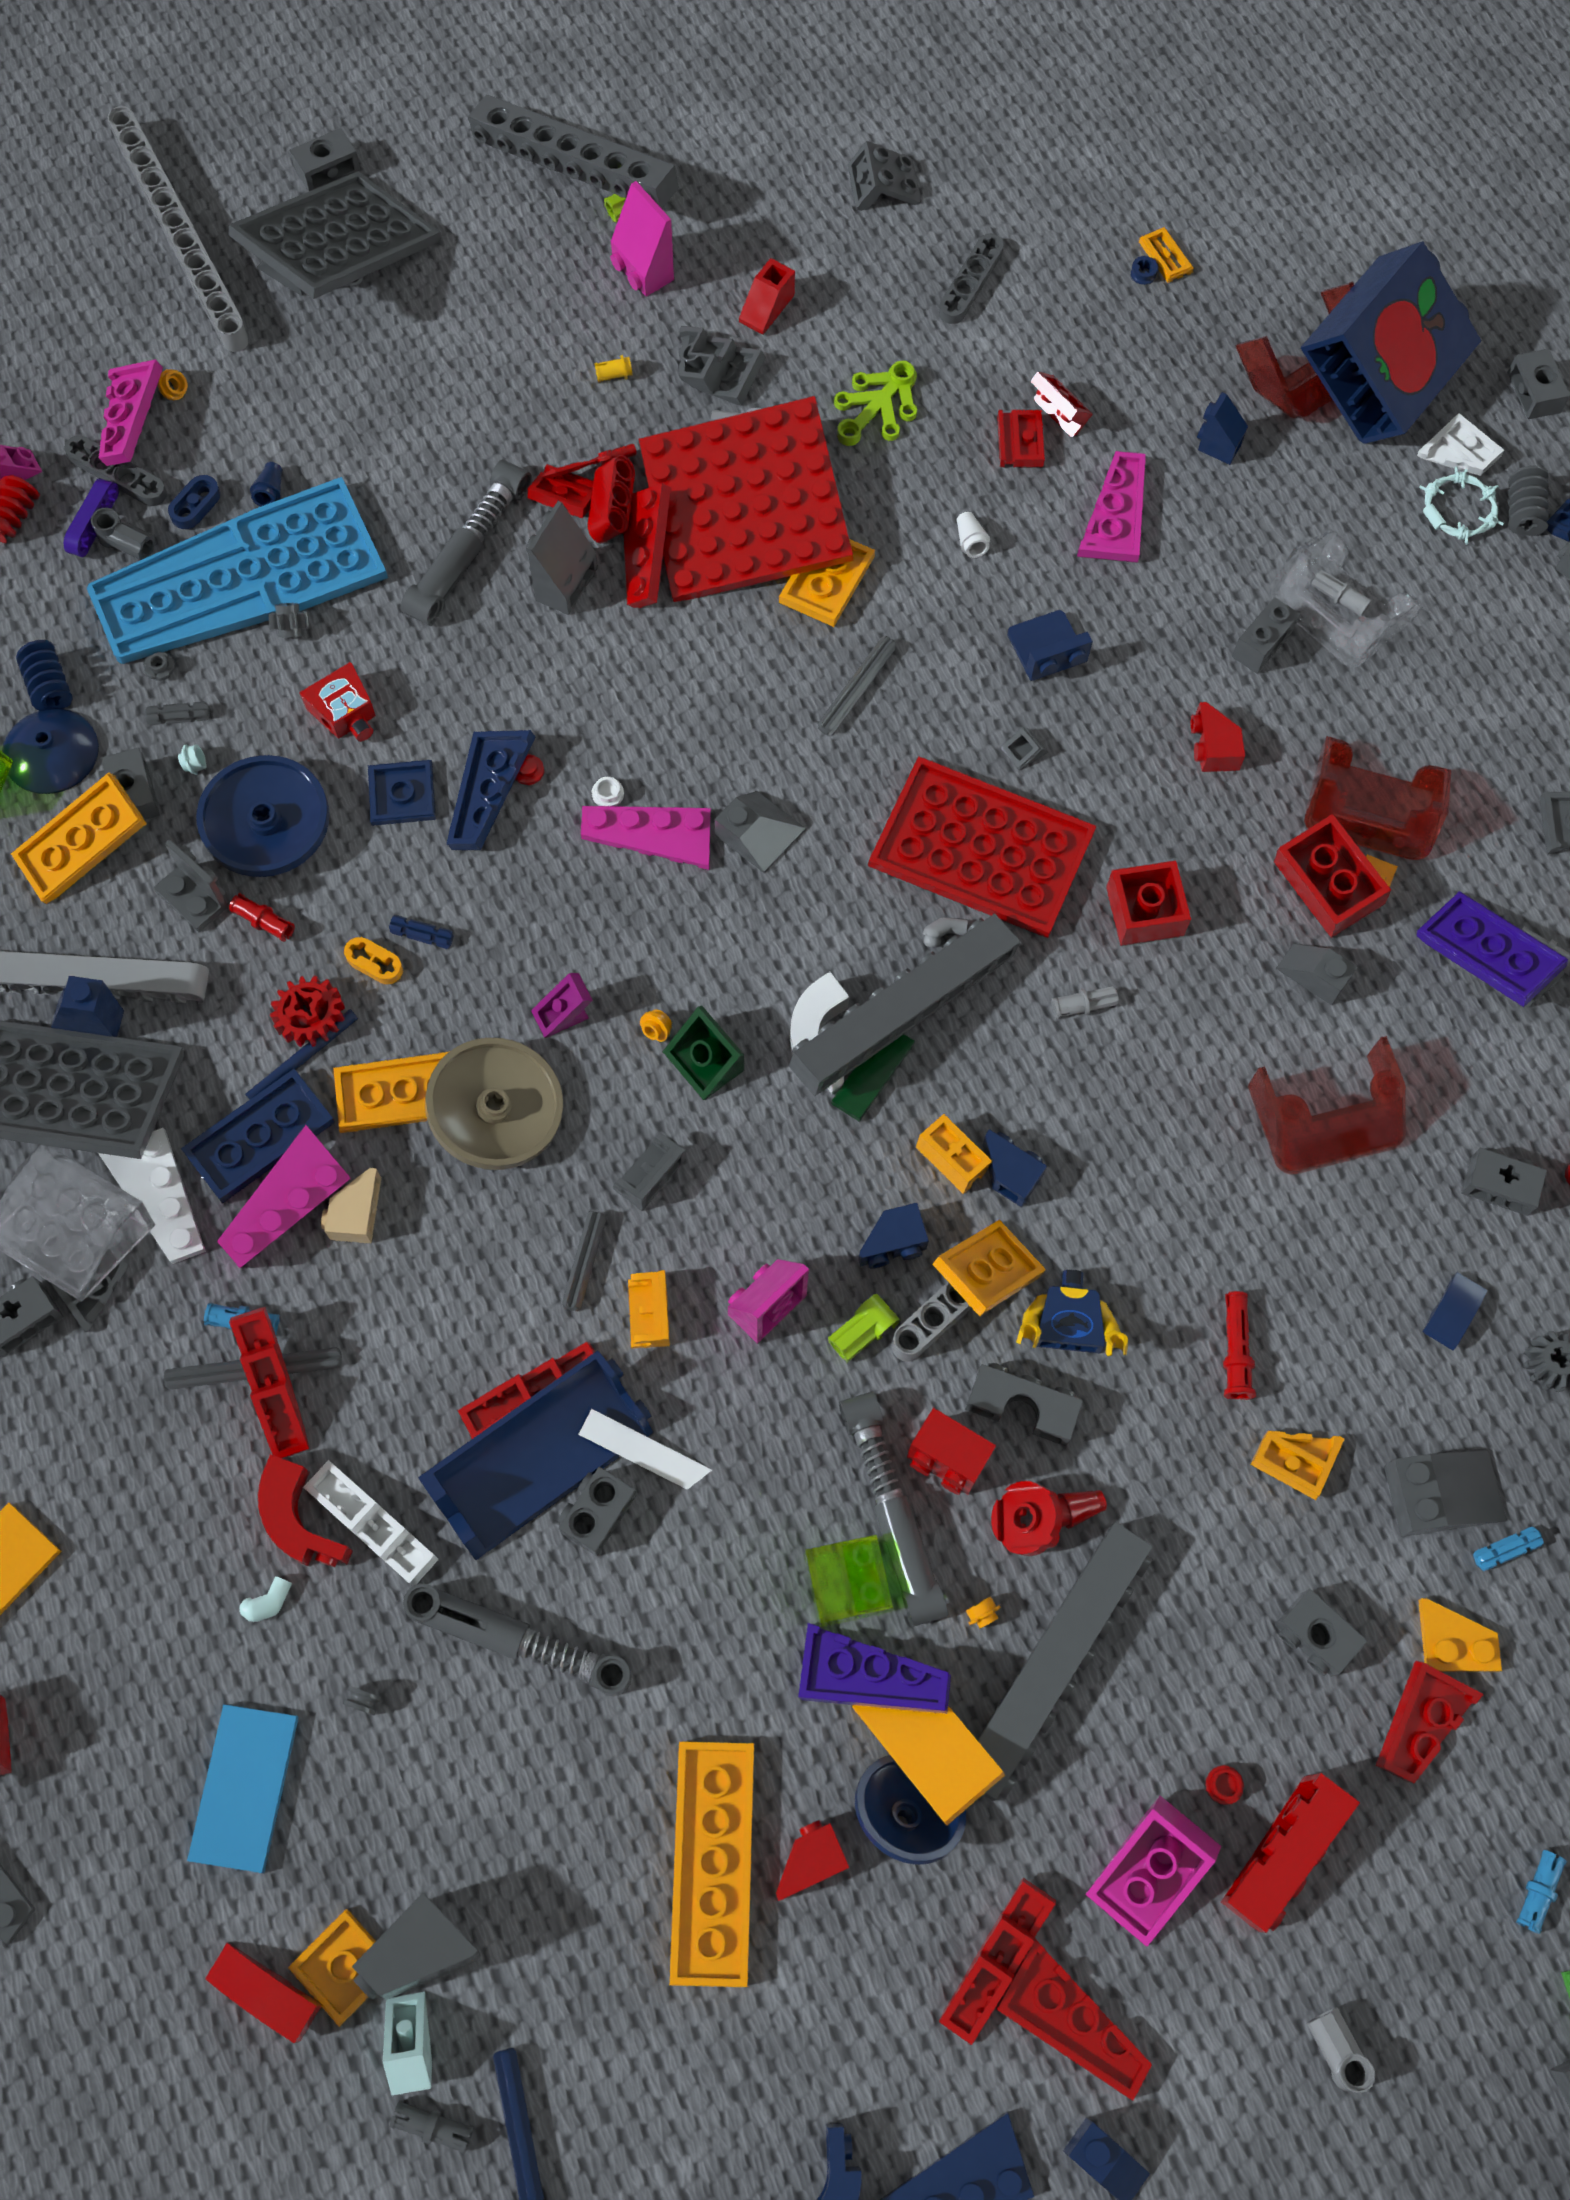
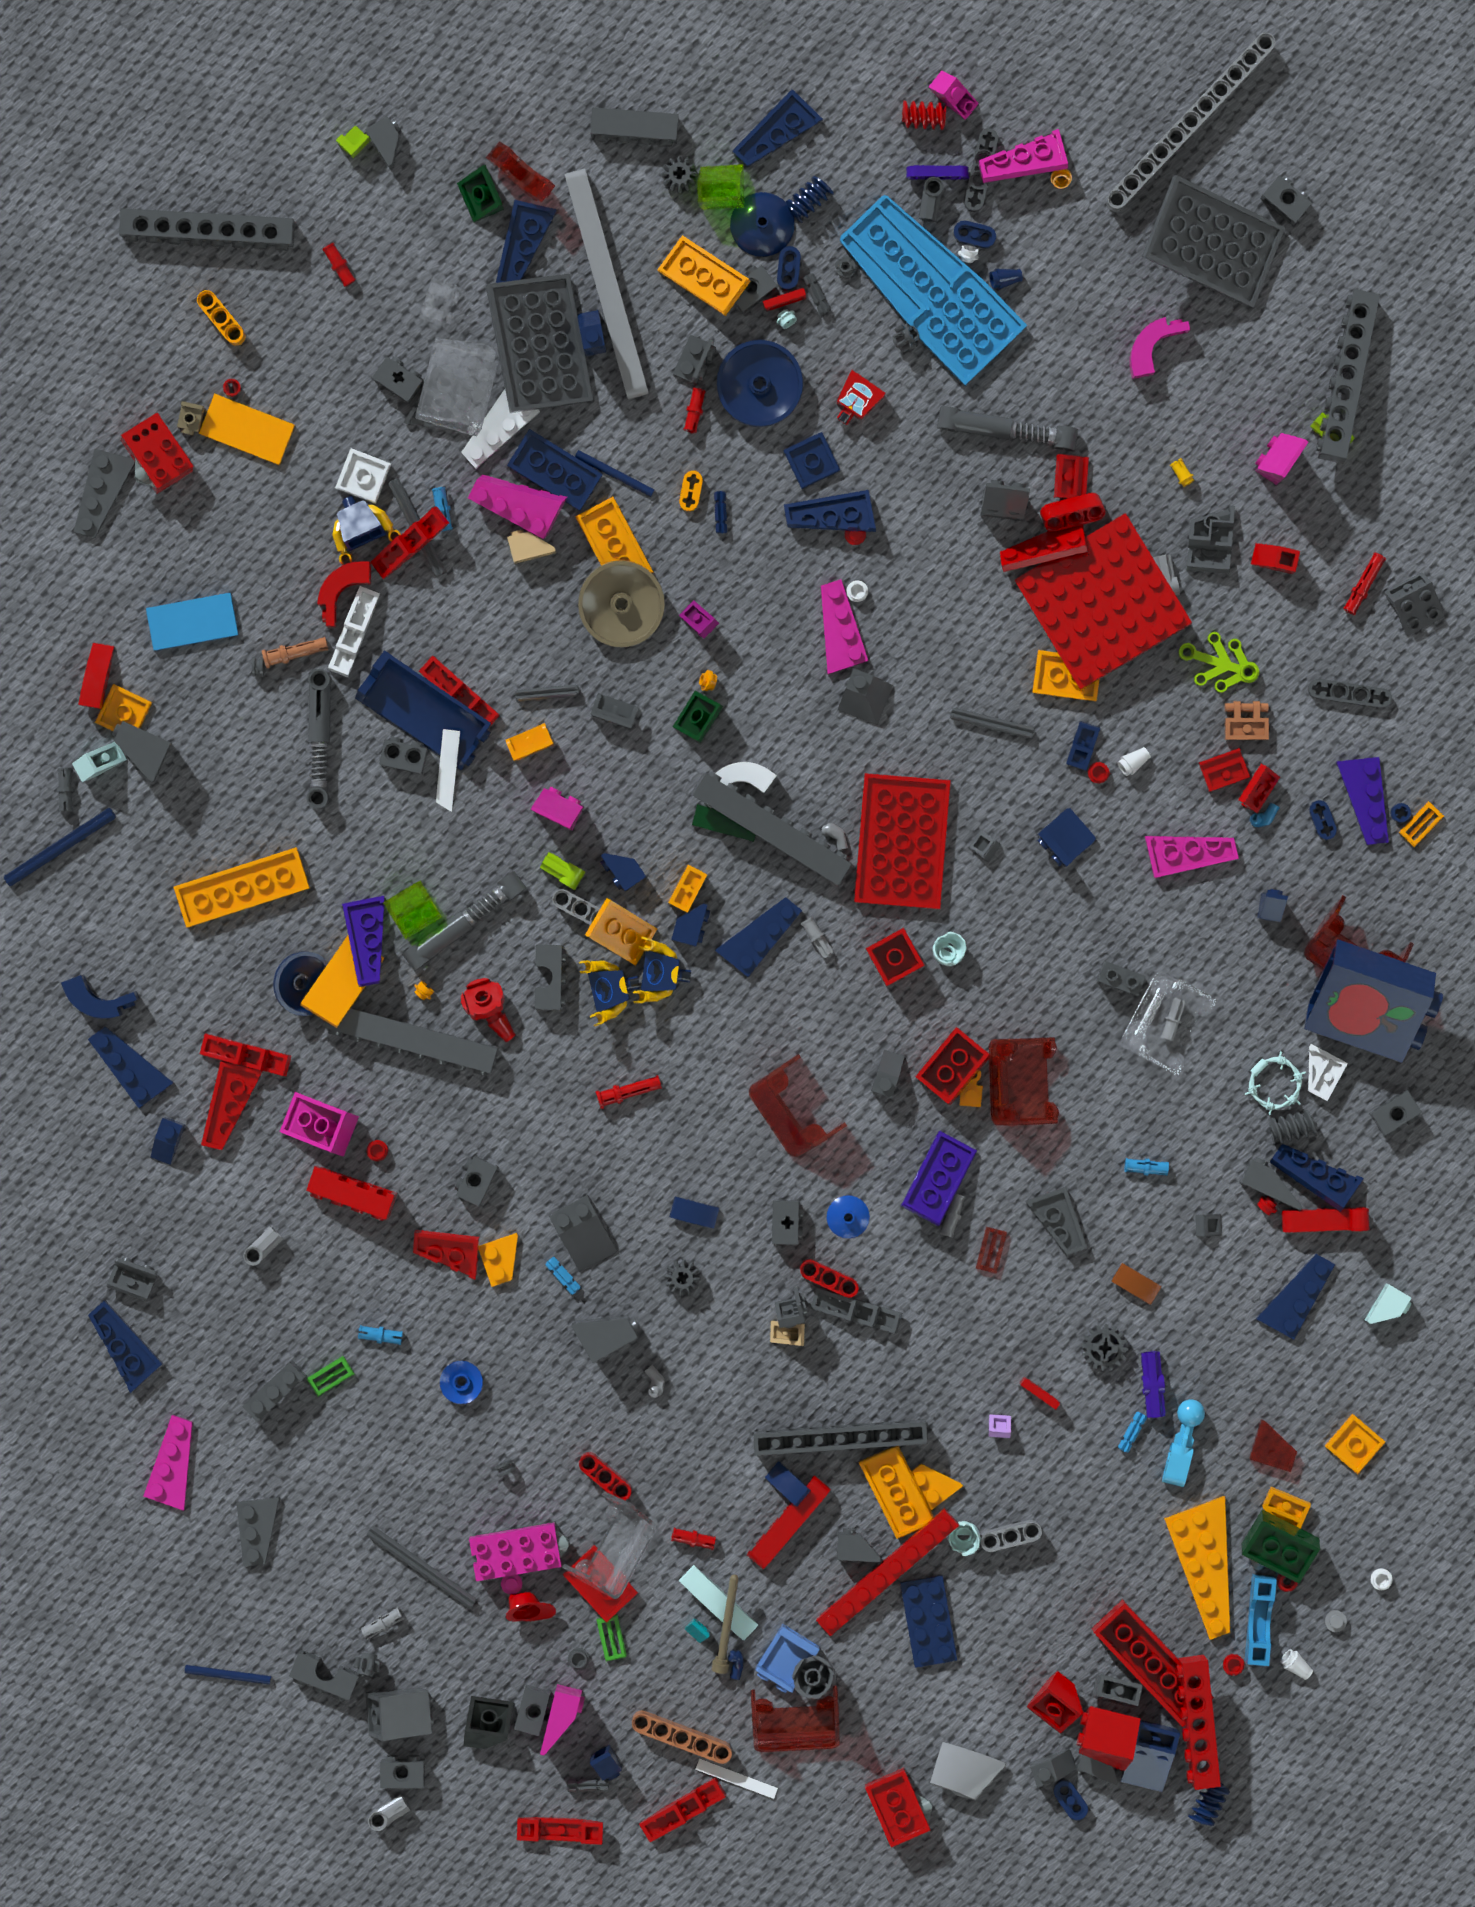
camera: 70 degrees right, 20 degrees up
(128, 732) = (788, 268): none -> dark blue plate
(137, 1422) = (363, 476): none -> white plate
(164, 751) = (784, 299): none -> red tile
(209, 1452) = (359, 525): none -> torso
(215, 515) = (969, 253): none -> white plate
(266, 1605) = (290, 593): light aqua arm -> none
(295, 1023) = (650, 472): red gear -> none
(360, 1647) = (284, 654): none -> nougat pin
(435, 361) = (1141, 352): none -> dark pink arch
(603, 457) = (1104, 492): red sword -> none
(811, 1859) = (260, 940): red slope -> none
(859, 241) = (1366, 580): none -> red pin
(932, 591) = (1083, 745): none -> dark blue slope
(949, 1452) = (503, 943): red brick -> none
(972, 581) = (1098, 772): none -> red plate
(974, 399) = (1246, 728): none -> nougat plate
(1062, 1088) = (754, 941): none -> dark blue wing
(1068, 1235) = (660, 972): none -> torso
(1095, 297) = (1365, 790): none -> dark purple wing
(1101, 413) = (1266, 818): none -> dark azure arm
(1124, 353) = (1317, 822): none -> dark blue beam
(1164, 823) = (958, 949): none -> light aqua hair
(1220, 743) = (1030, 969): red slope -> none
(1298, 1459) = (572, 1143): light orange wing -> none
(1507, 1108) = (845, 1205): none -> blue dish
(1537, 688) = (1146, 1167): none -> dark azure pin

